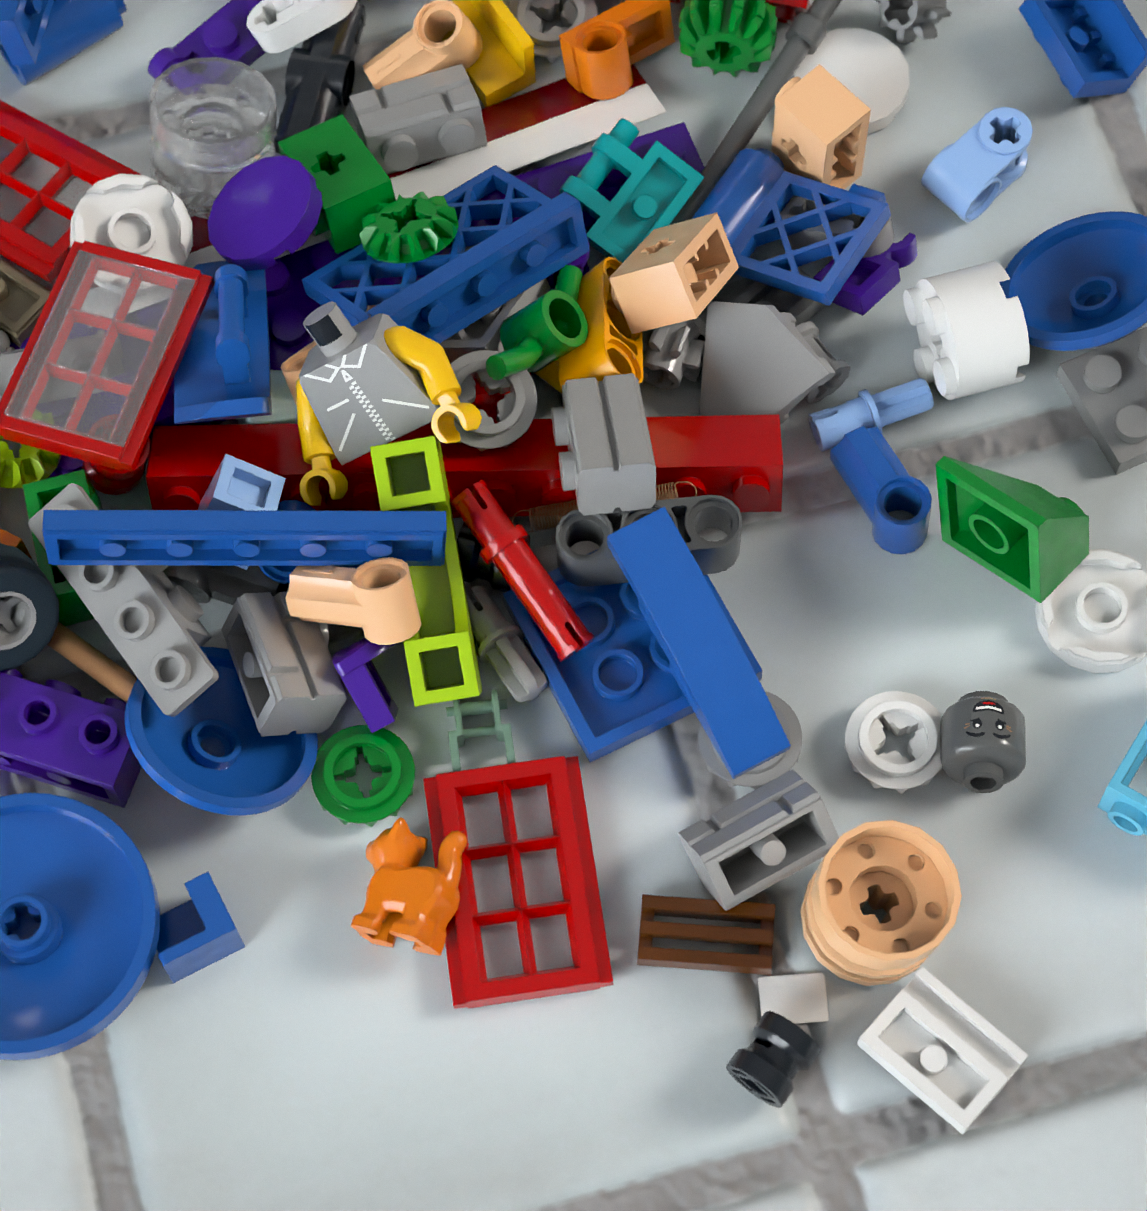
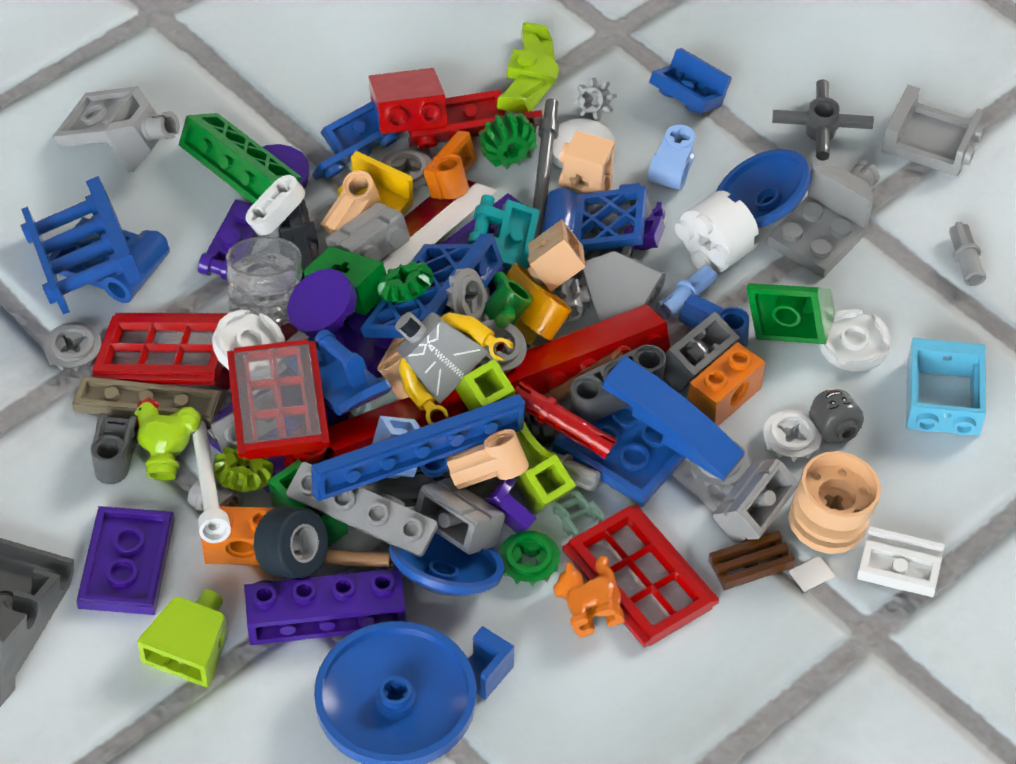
camera: 30 degrees left, 15 degrees down
(482, 314) = (469, 282): none -> light grey gear
(607, 444) = (575, 340): light grey brick -> none
(773, 1059) = (822, 605): black wheel -> none
(813, 533) = (697, 351): none -> dark grey brick
(832, 610) = (727, 383): none -> orange brick

